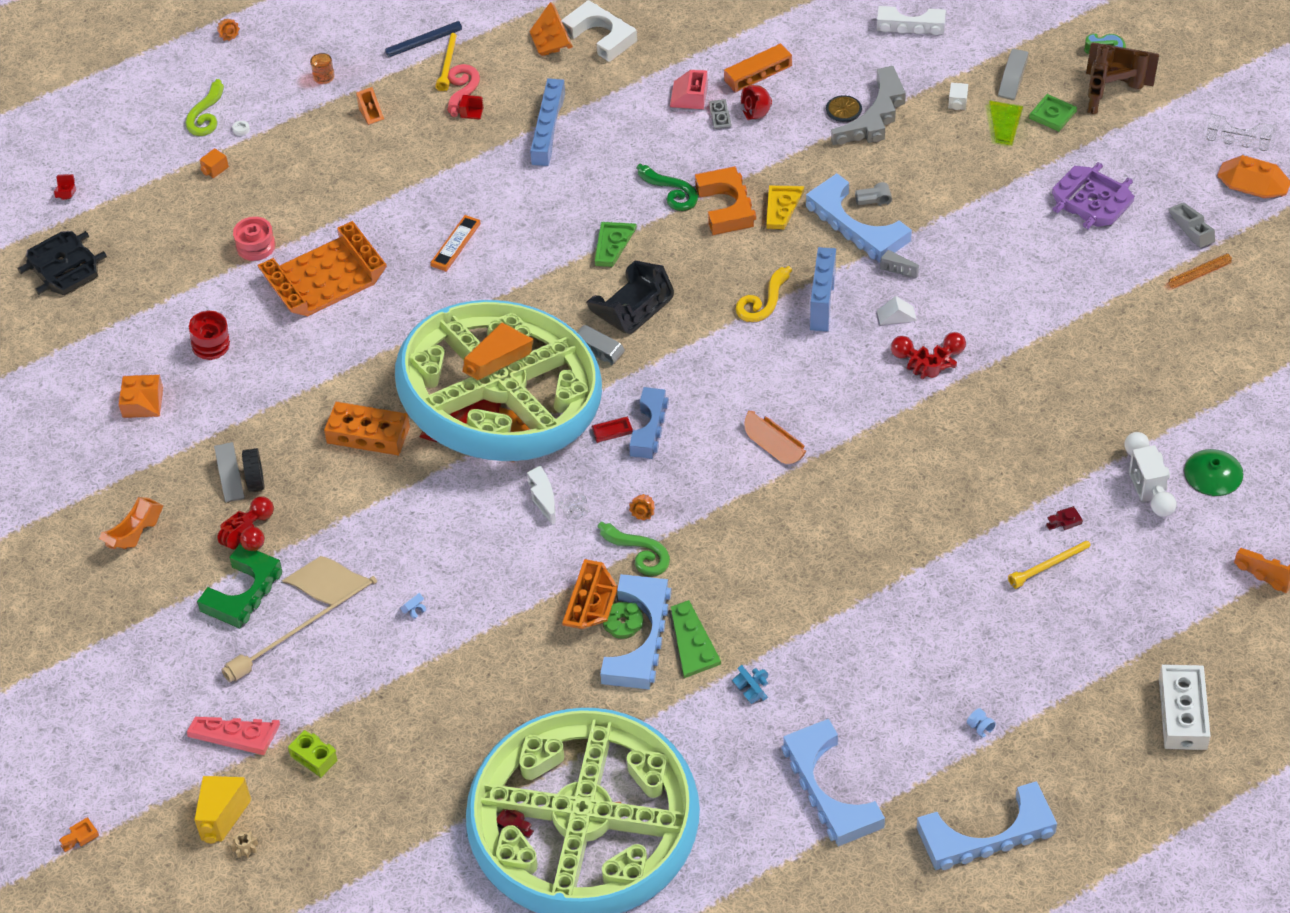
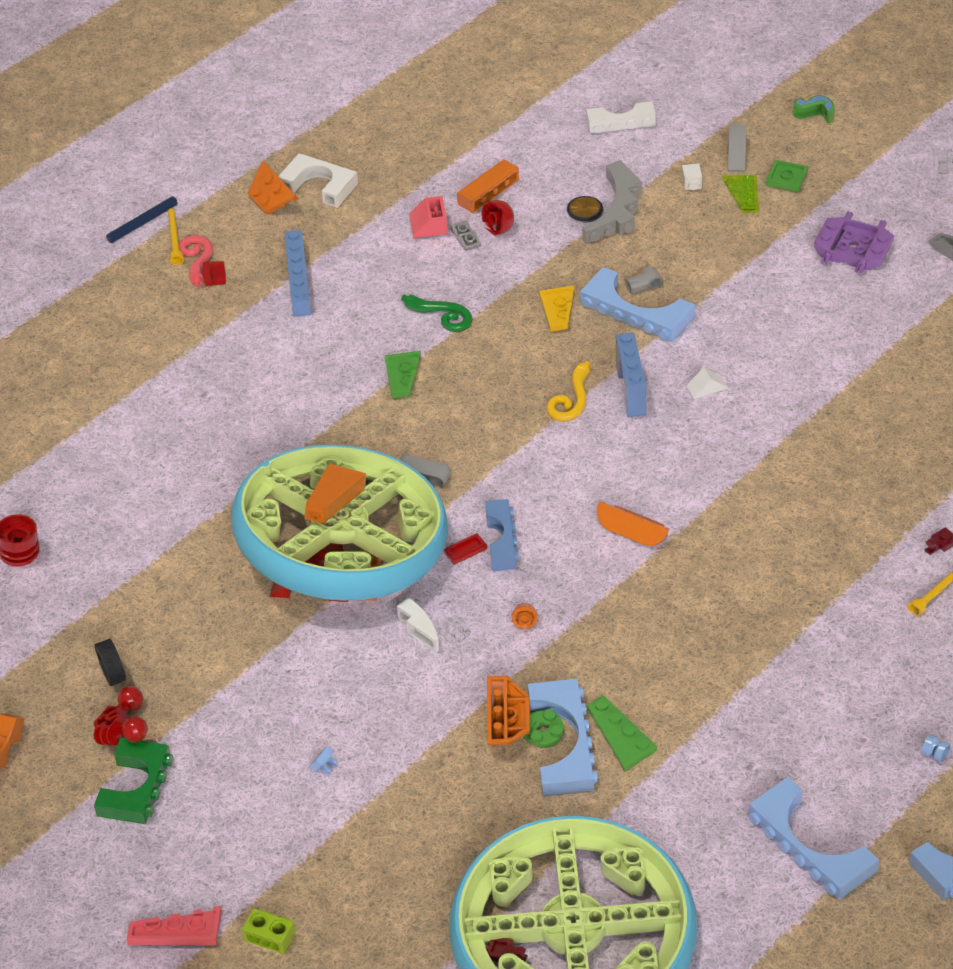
camera: 15 degrees left, 5 degrees down
(229, 472) = (83, 670): light grey slope -> none
(254, 238) = (32, 438): coral wheel -> none
(322, 68) = (48, 264): clear orange wheel -> none
(323, 581) = (217, 757): tan flag -> none
(326, 272) = (120, 456): orange slope -> none
(367, 428) = (214, 598): orange brick -> none
(369, 105) = (108, 291): orange slope -> none
(455, 243) = (242, 404): tile -> none
(619, 538) = (507, 650): bright green plant -> none
(638, 300) = (447, 421): black windscreen -> none
(726, 182) = (499, 295): orange arch -> none
(744, 678) = (702, 767): dark azure hips -> none
(897, 264) = (688, 339): light grey slope -> none
(925, 363) = (749, 423): red piece -> none
(1116, 63) = (835, 120): reddish brown plate -> none

